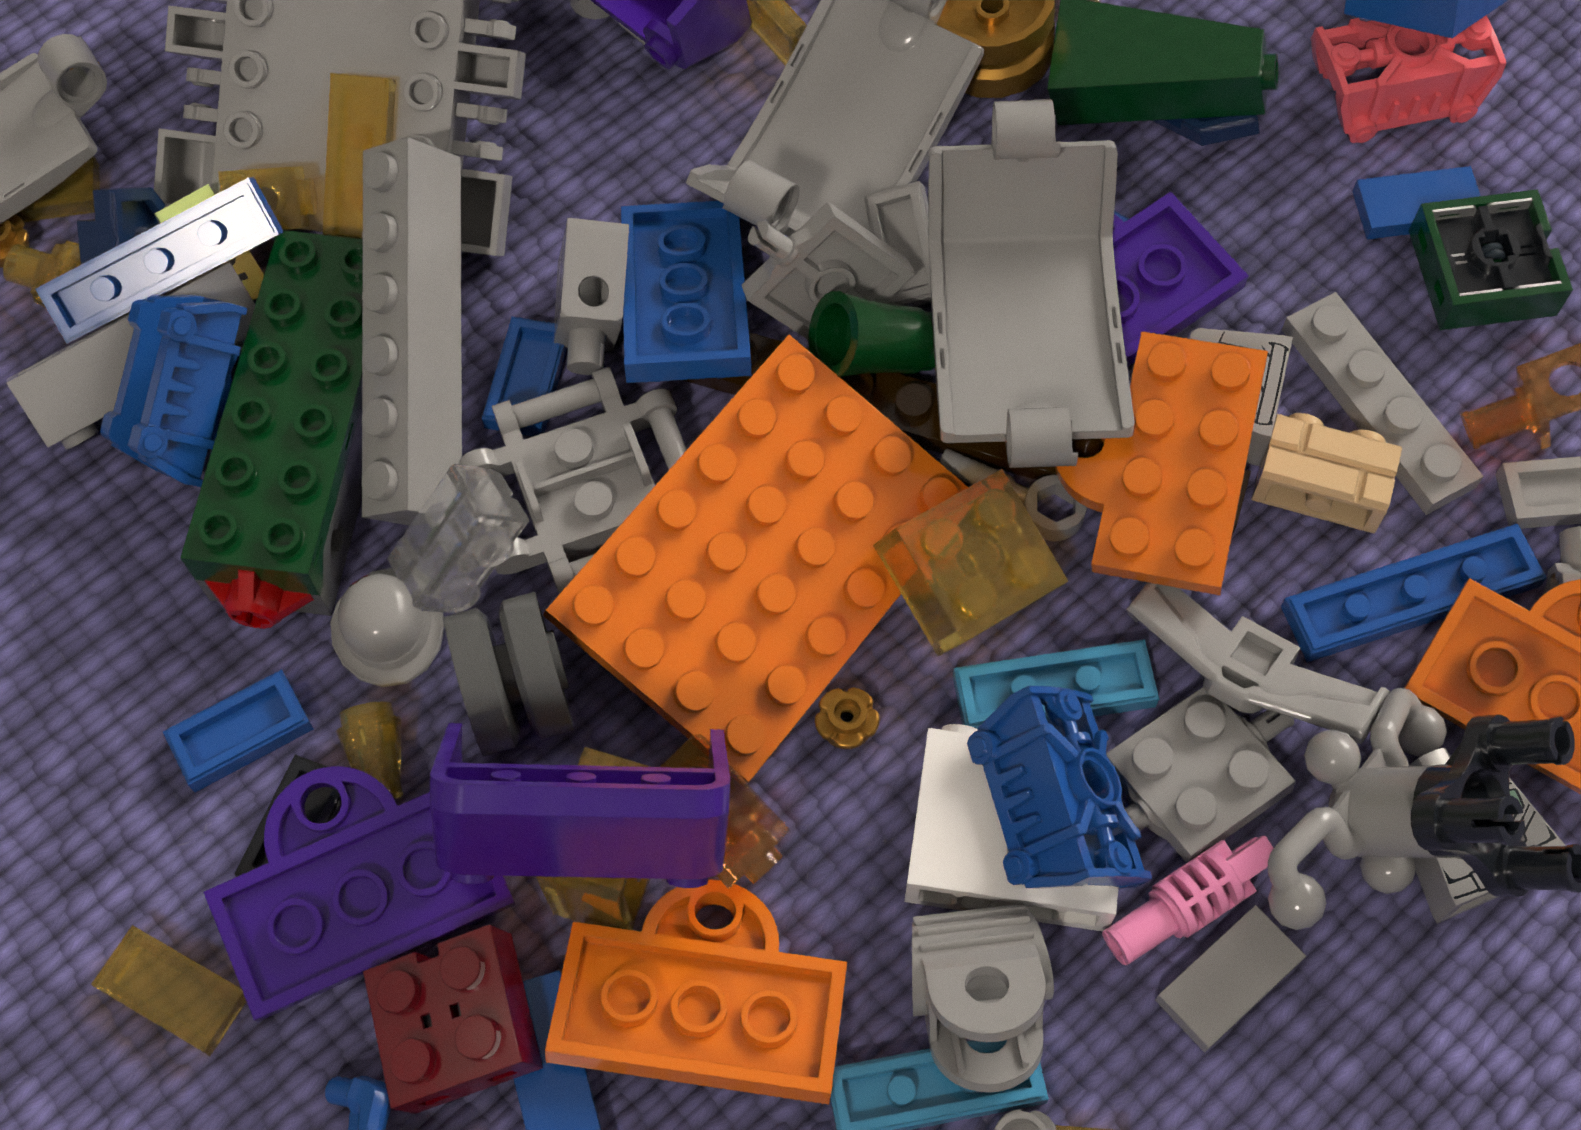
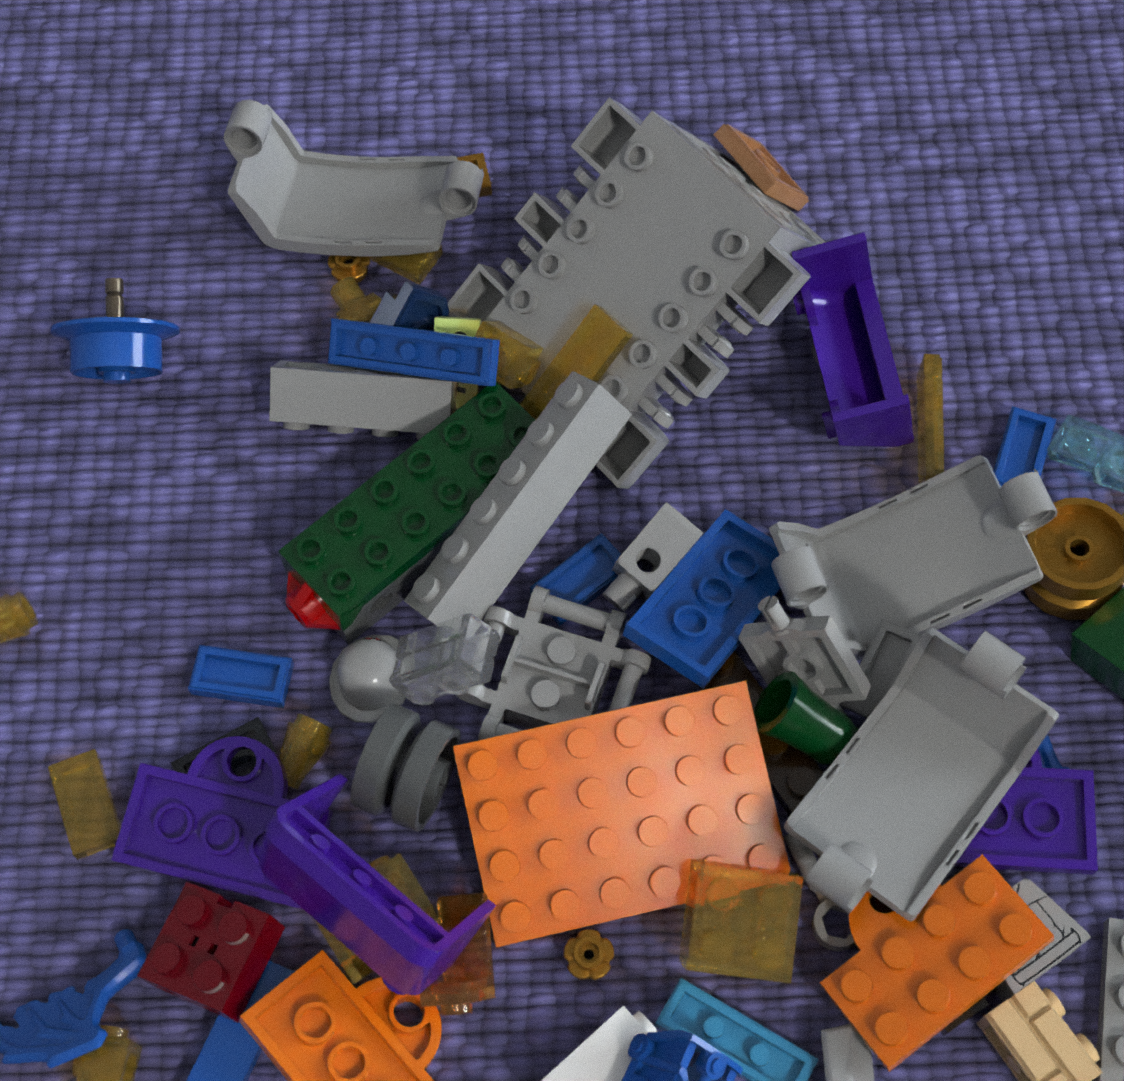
camera: 40 degrees right, 0 degrees up
(174, 383) = (362, 436): blue piece -> none

